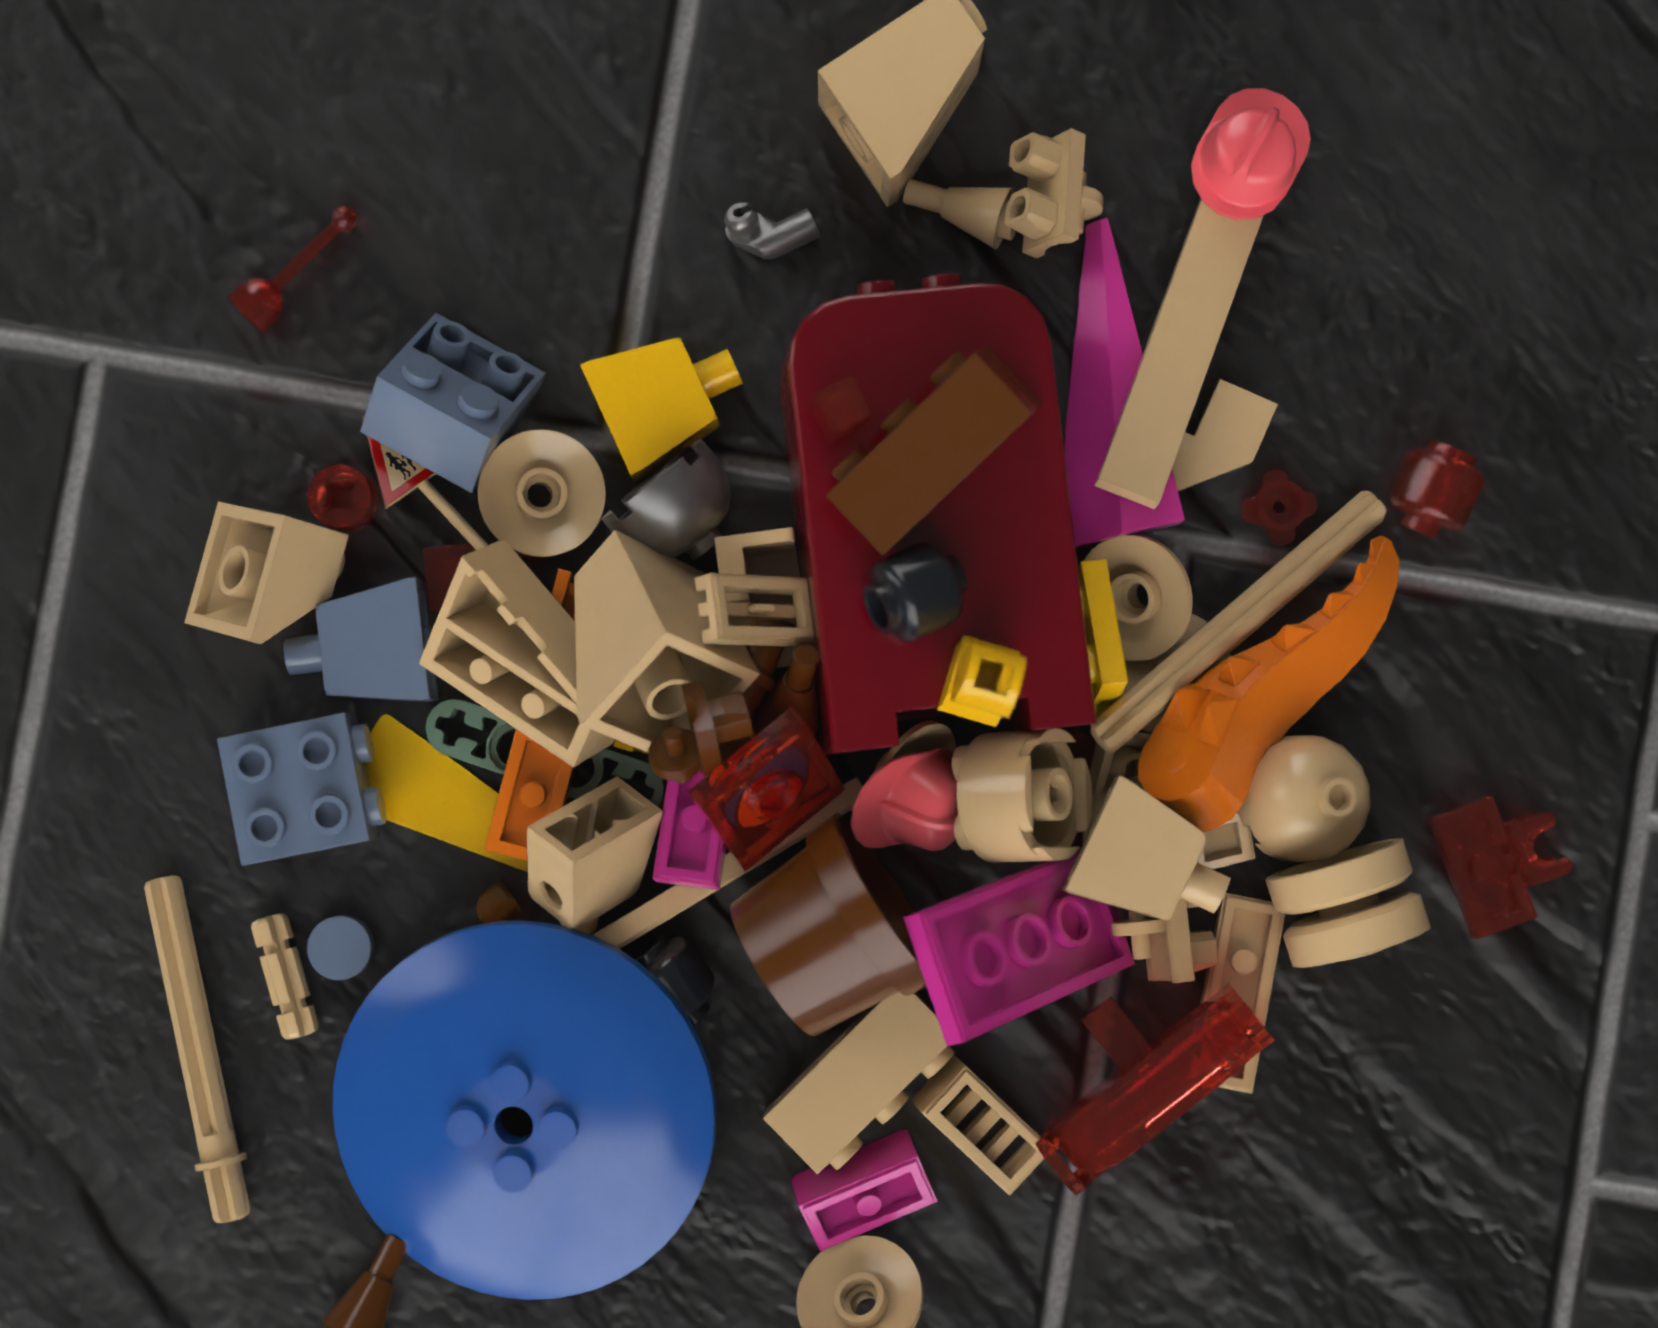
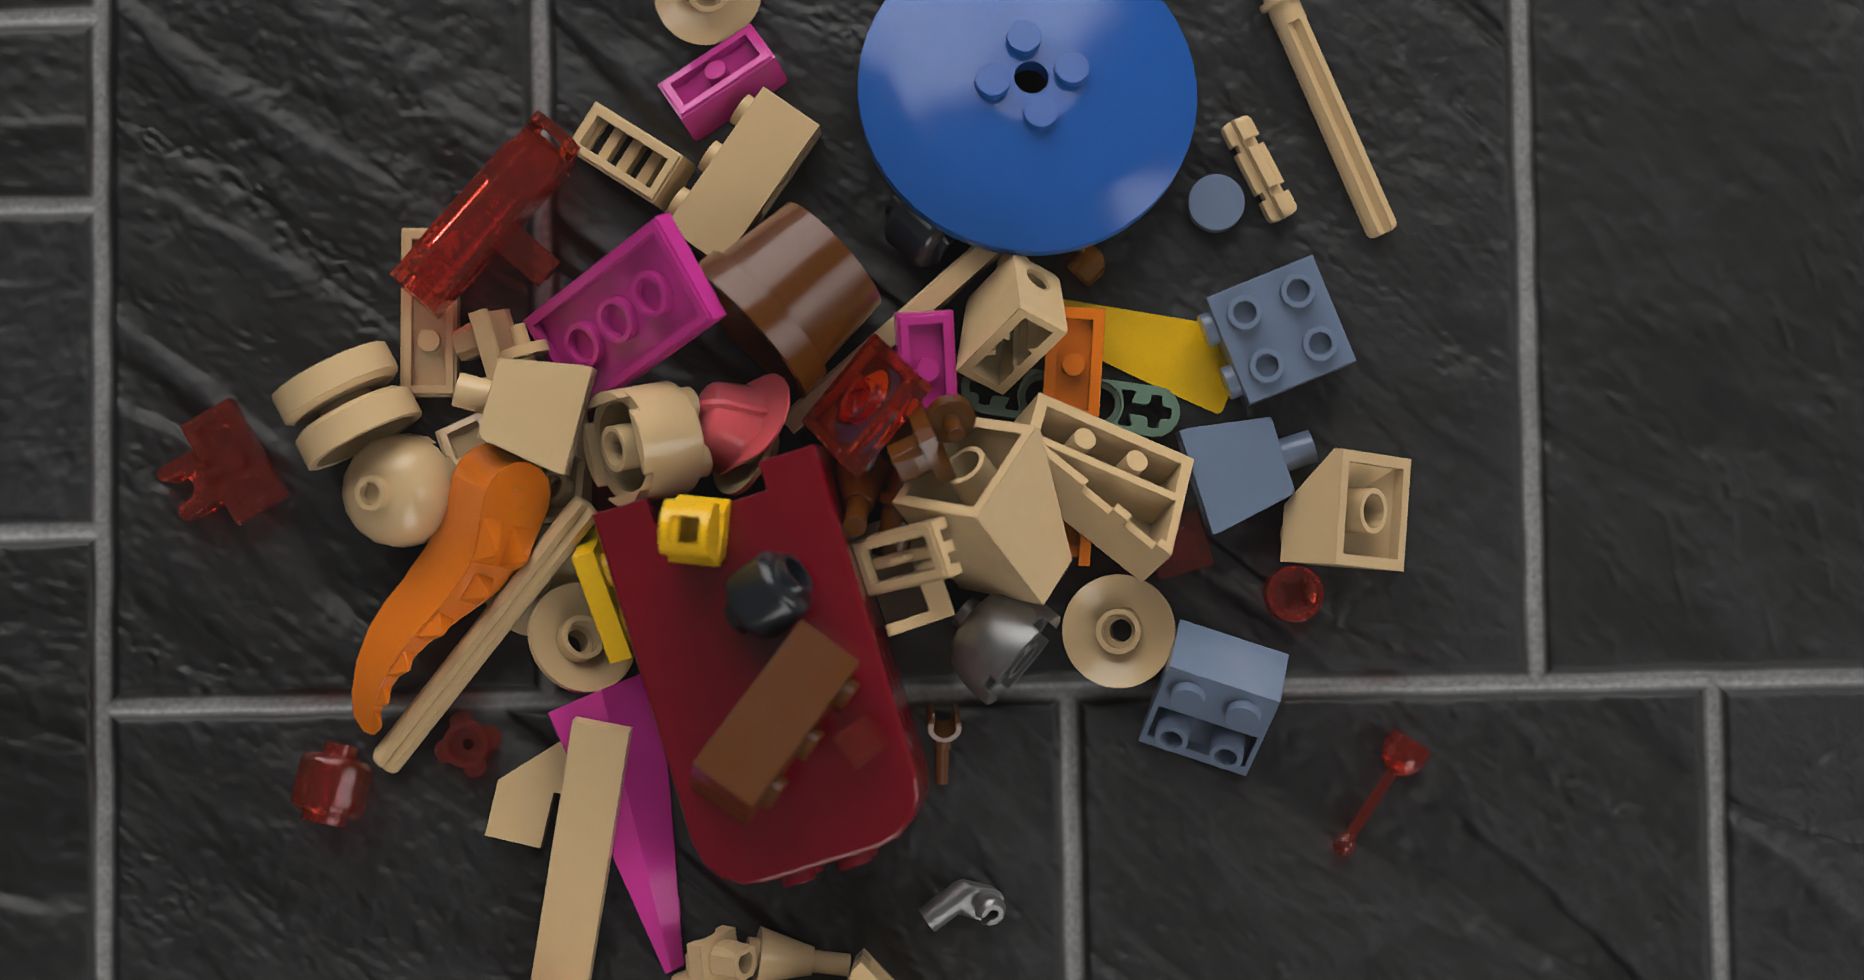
camera: 170 degrees right, 0 degrees up
(401, 476) = (1245, 623): tan piece -> none
(658, 400) = (1032, 733): yellow torso -> none
(756, 419) = (943, 733): none -> reddish brown hand

